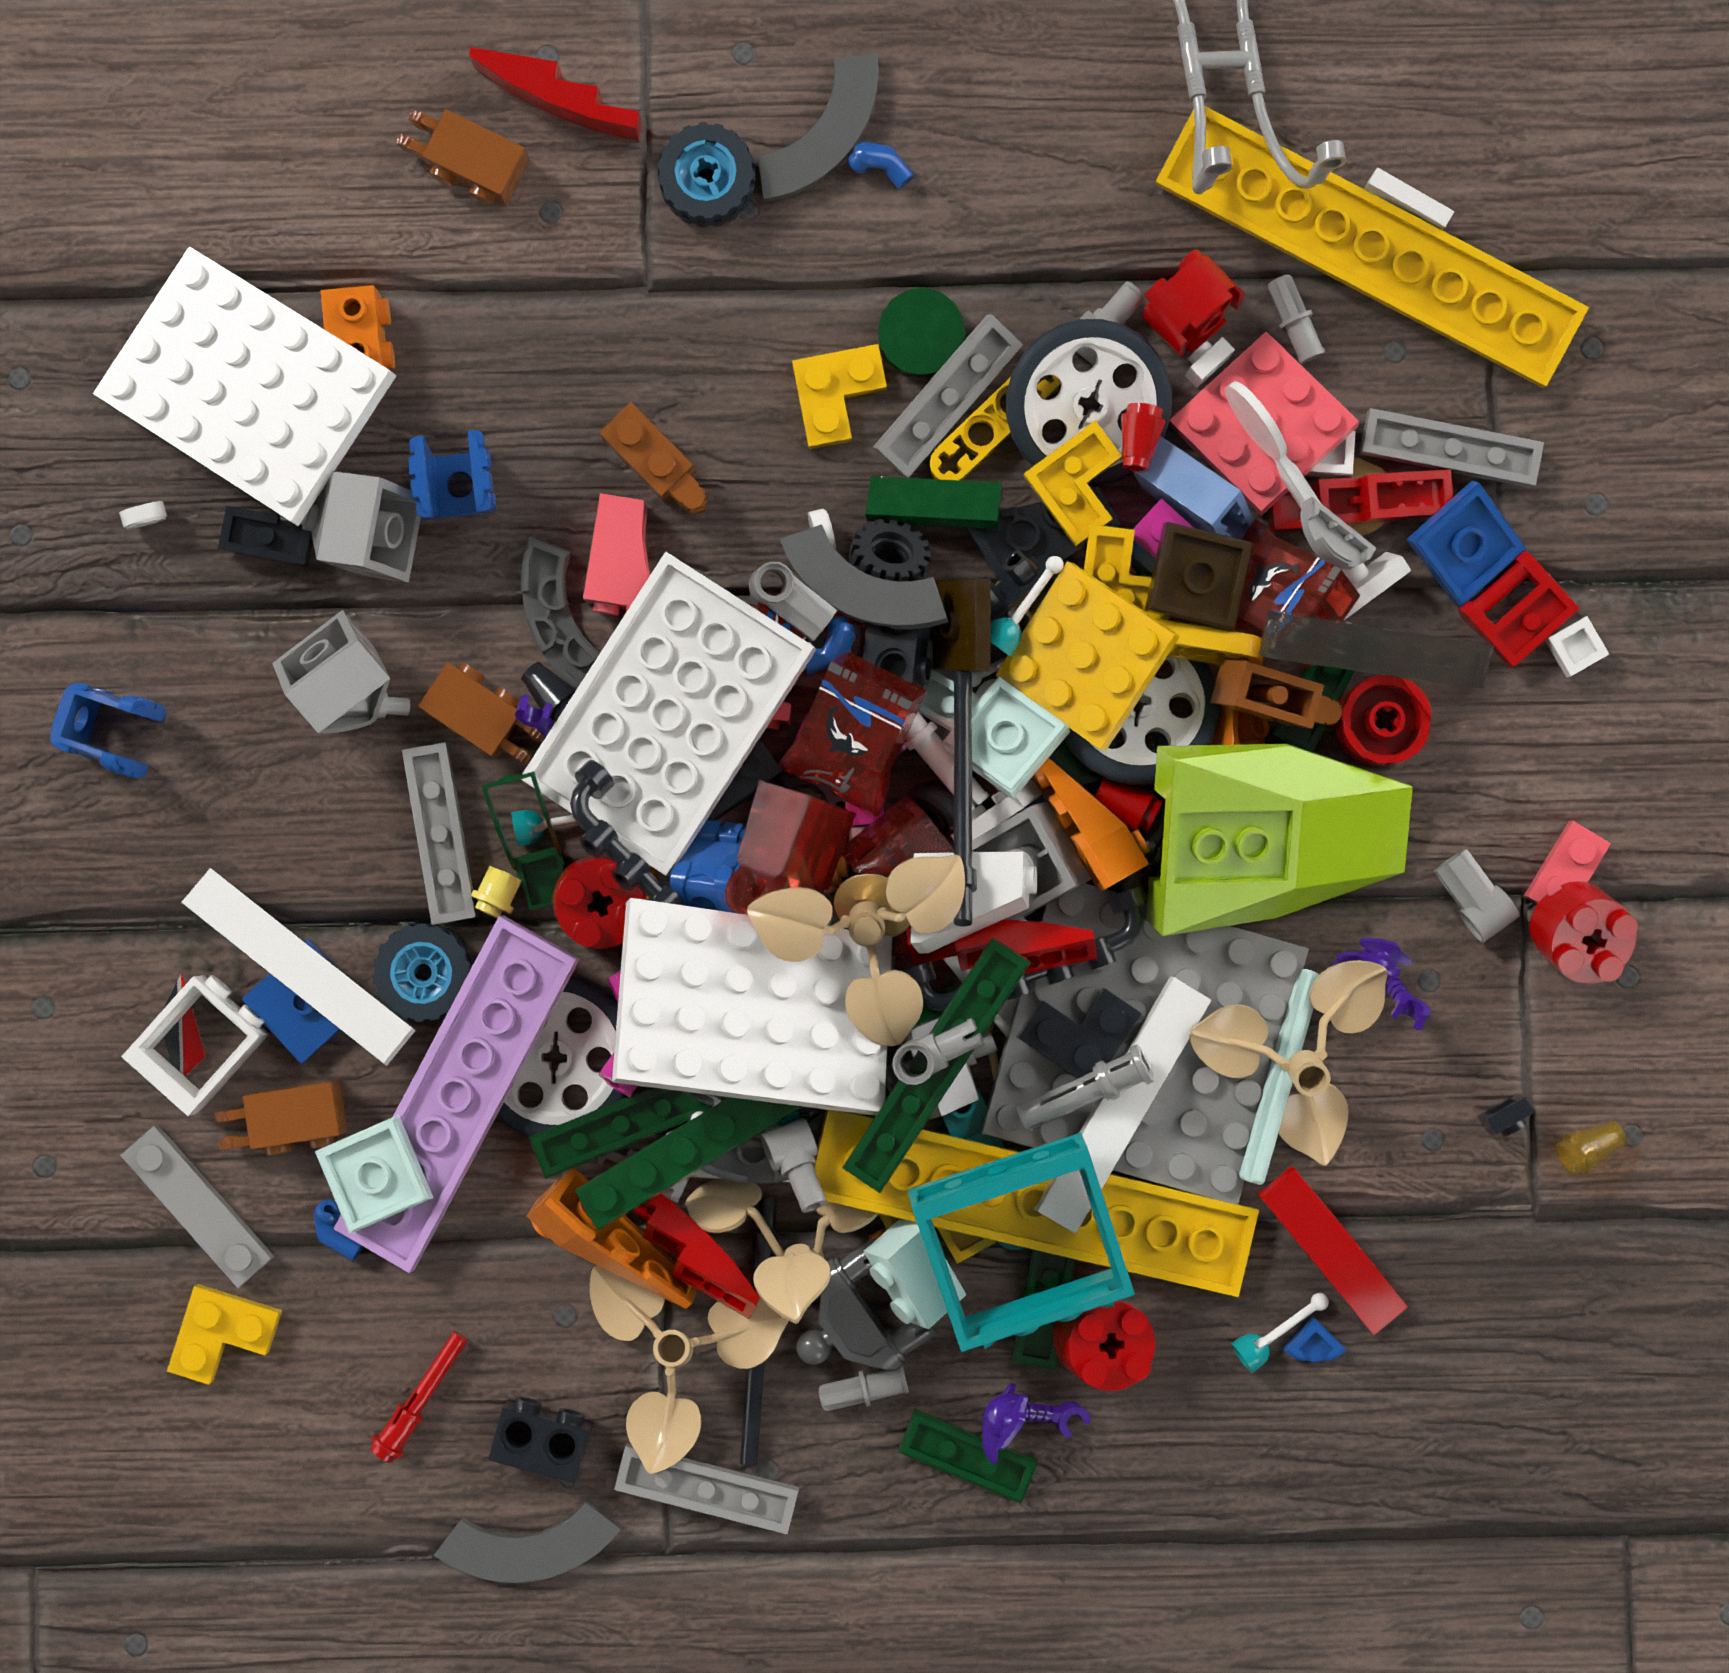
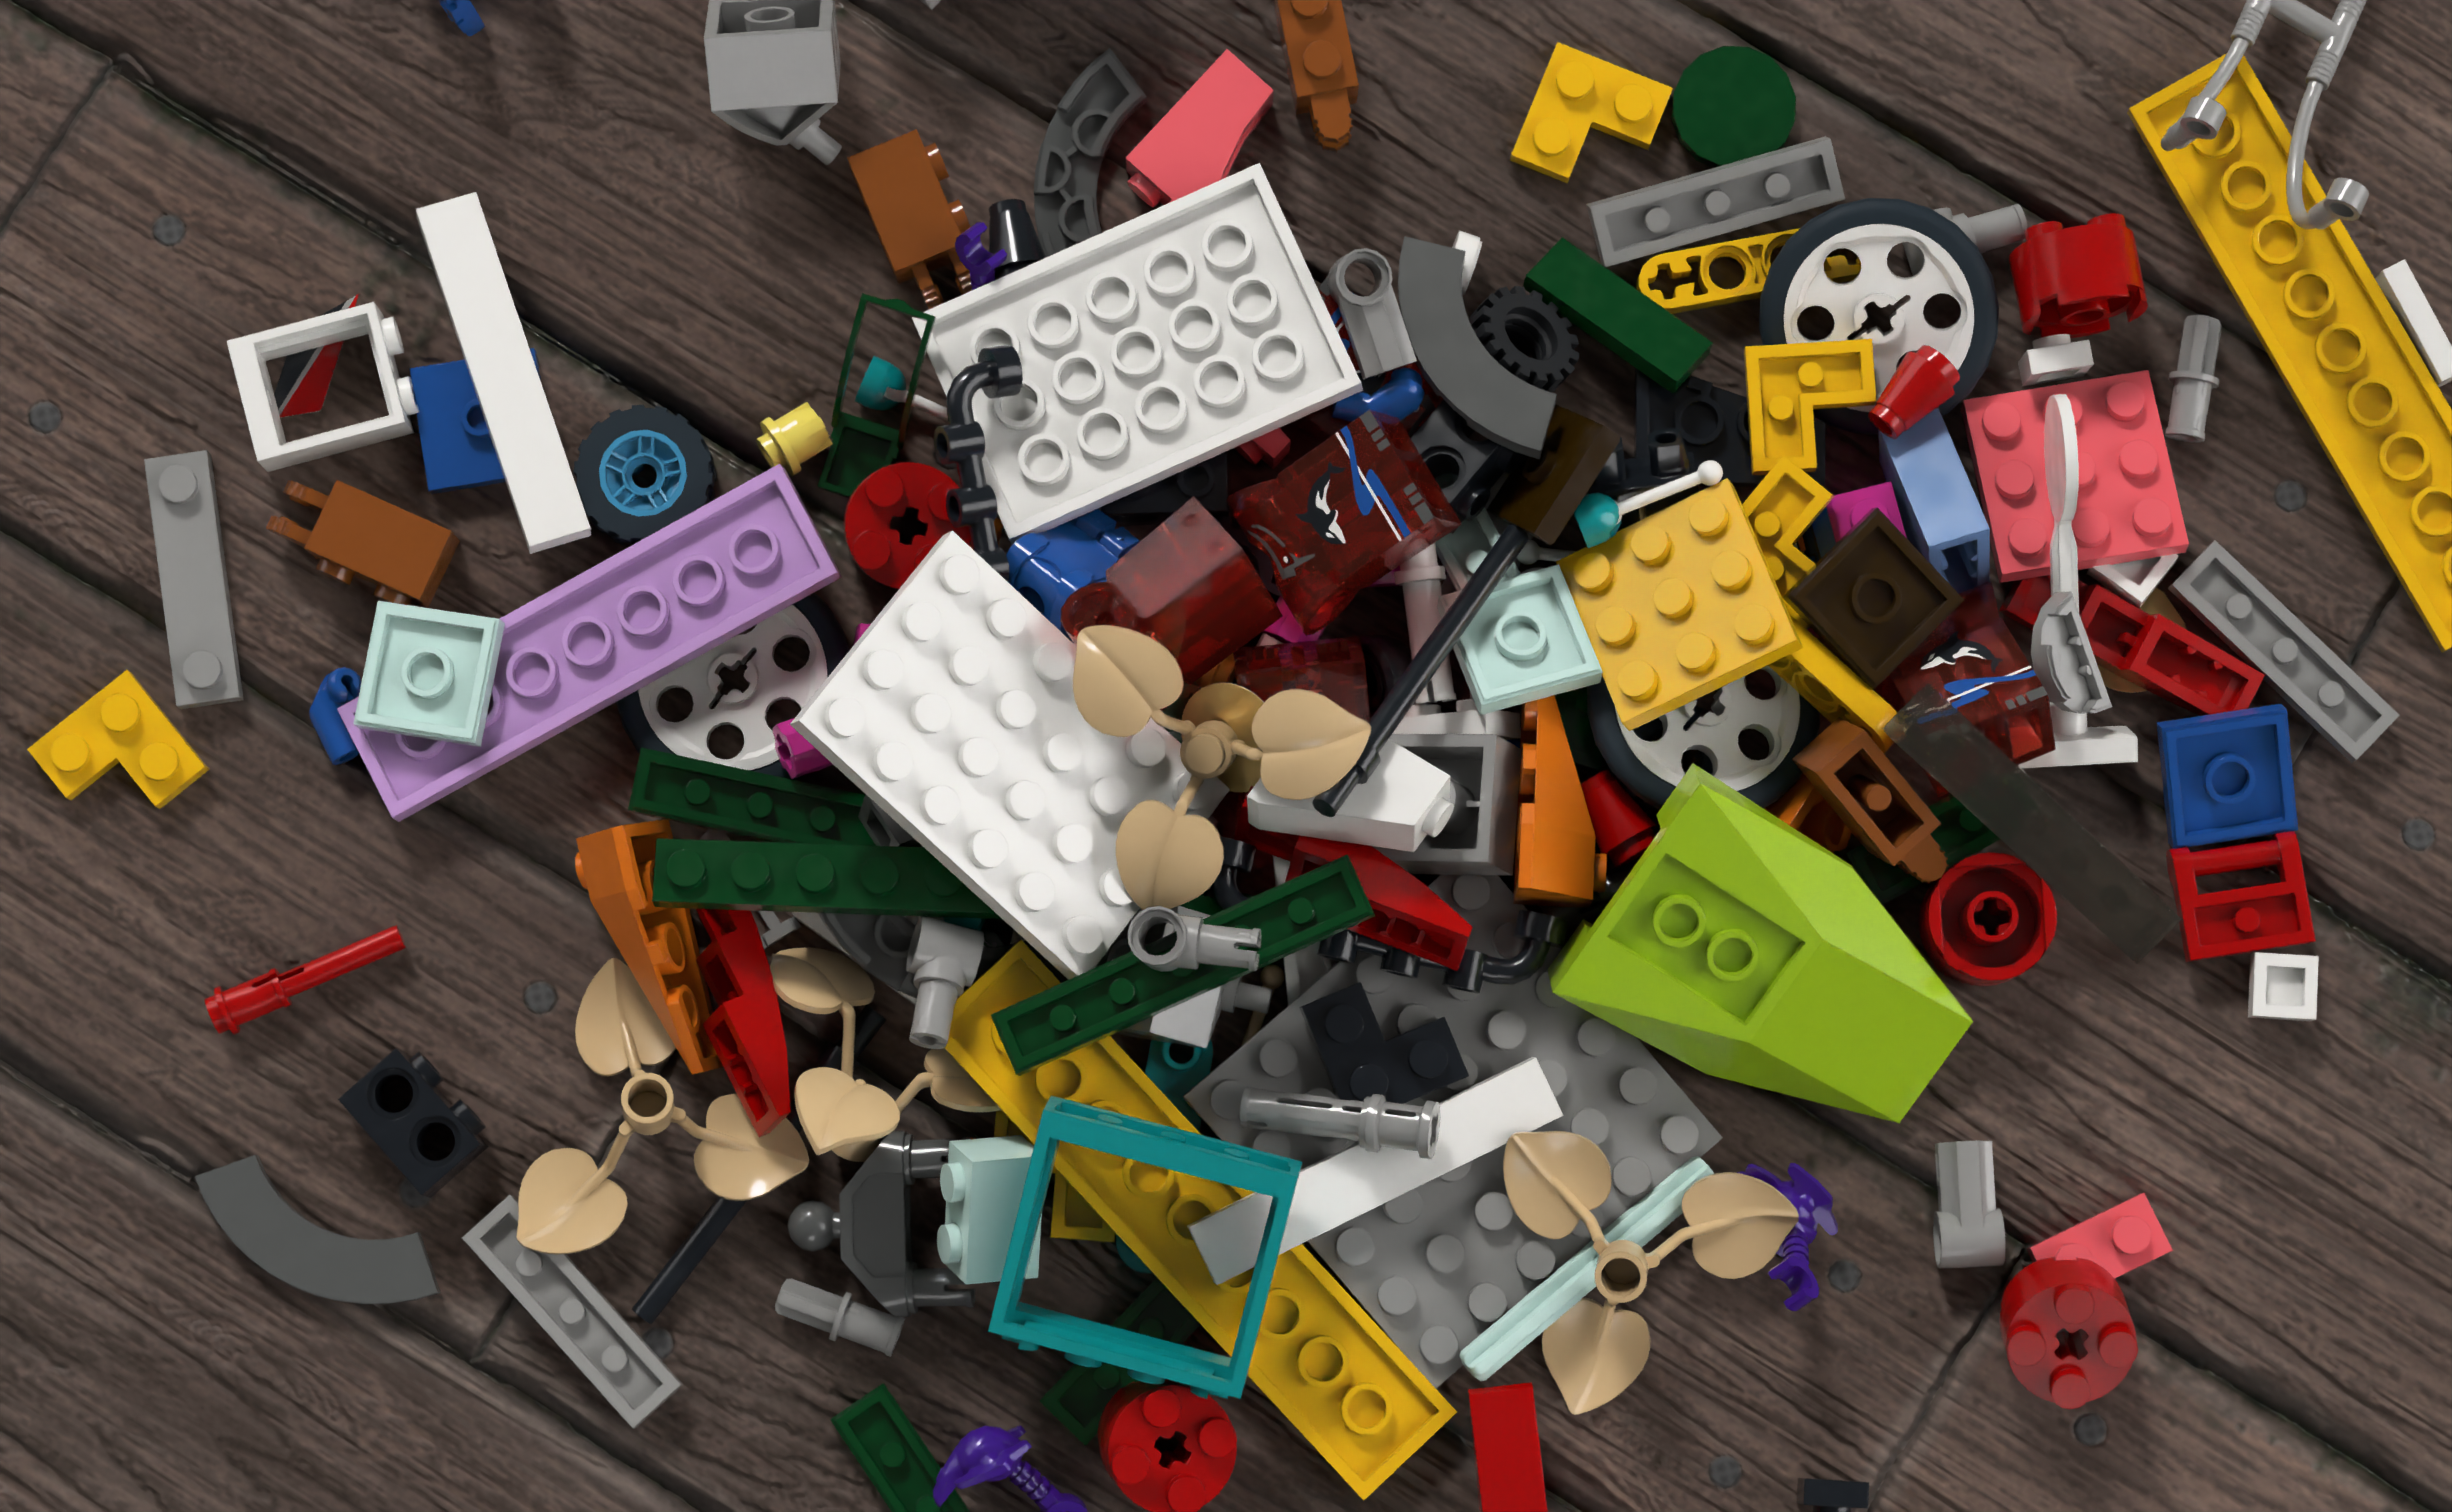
camera: 30 degrees right, 5 degrees down
(439, 833) = (772, 326): light grey plate -> none

